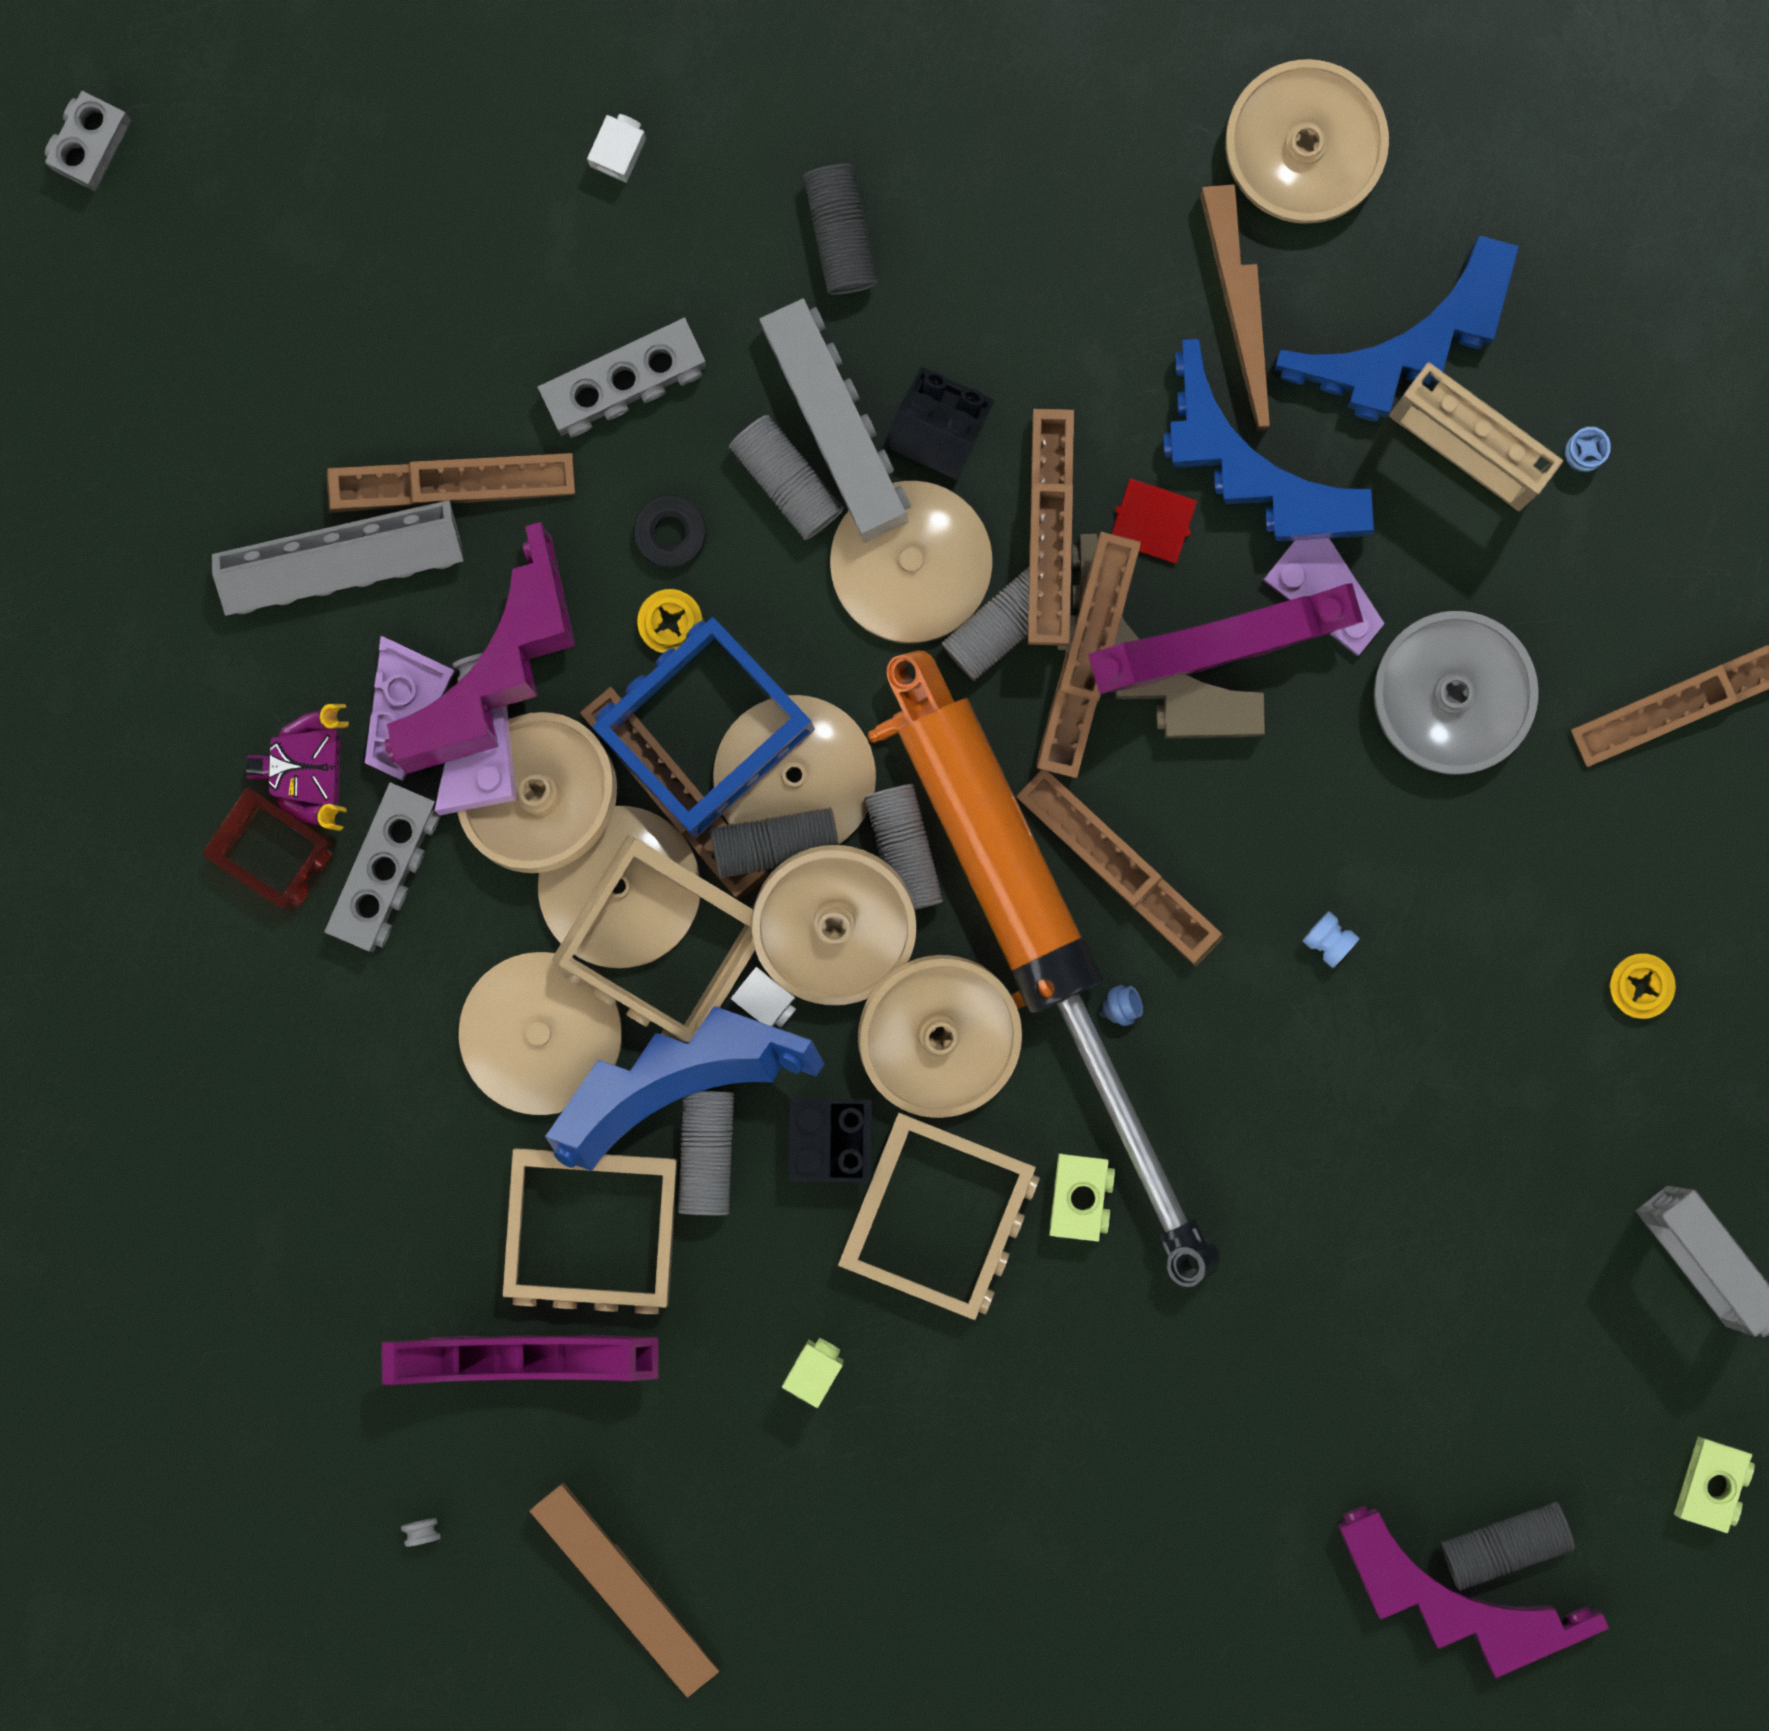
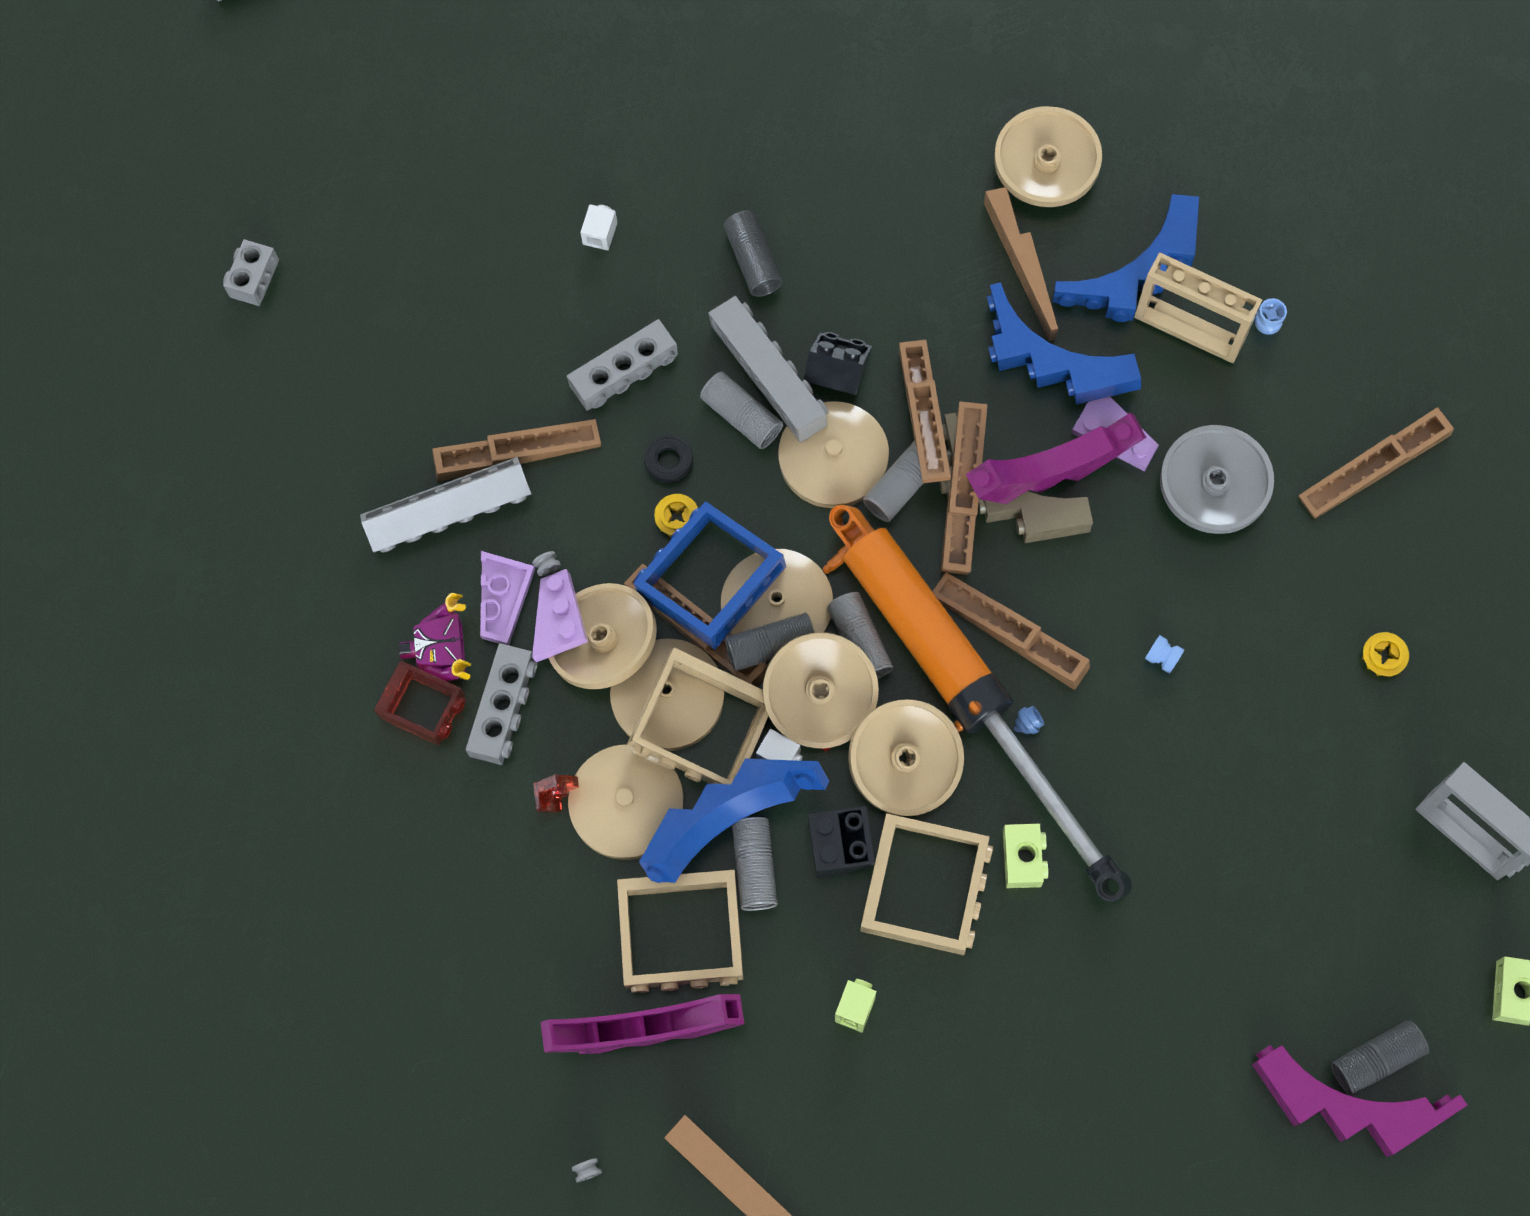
camera: 10 degrees left, 15 degrees down
(434, 1009) = (551, 790): none -> clear red bracket
(530, 627) = (542, 592): magenta arch -> none
(1155, 519) = (999, 401): red piece -> none

